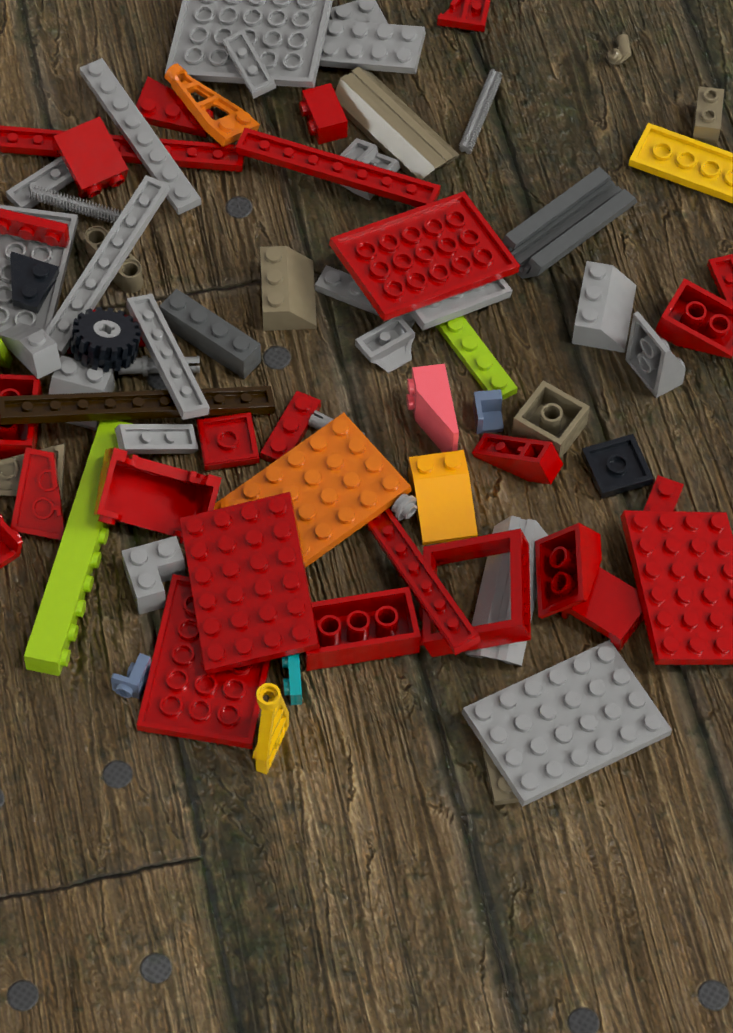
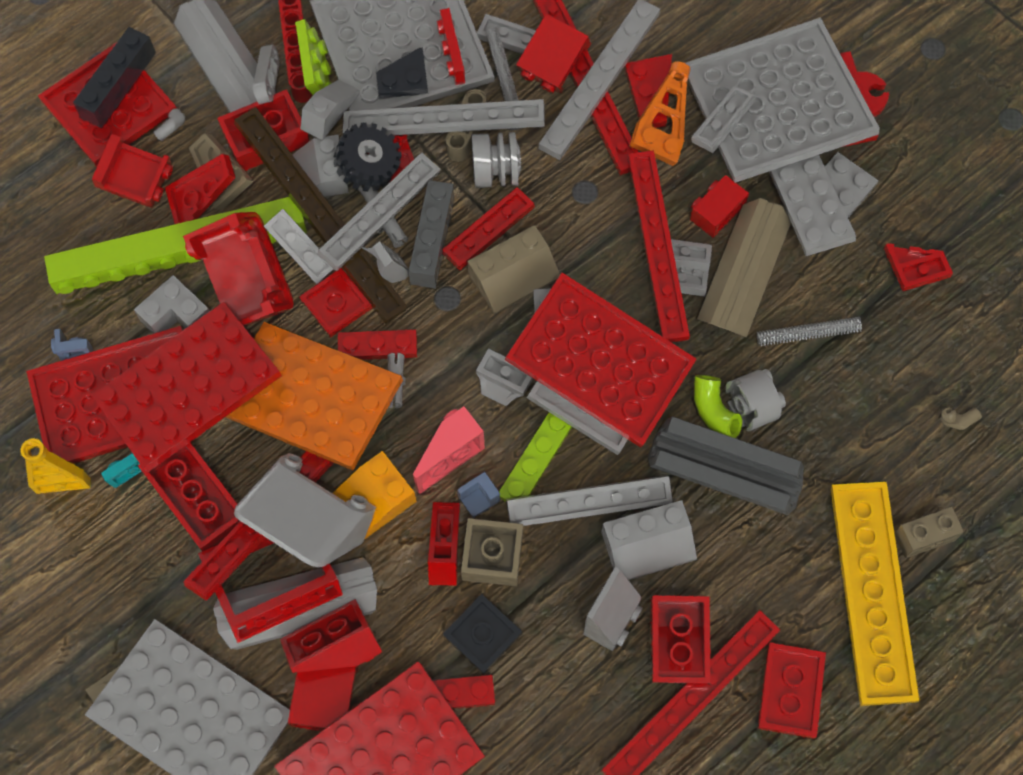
camera: 65 degrees right, 10 degrees up
(171, 248) = (495, 160): none -> light grey wheel
(220, 374) = (389, 263): none -> light grey slope
(231, 288) = (488, 228): none -> red plate
(404, 506) = (334, 472): light grey plate -> none
(434, 536) = (304, 515): none -> light grey windscreen
(507, 208) = (712, 409): none -> lime cylinder
(525, 171) = (755, 399): none -> light grey brick
(543, 332) = (590, 501): none -> light grey plate

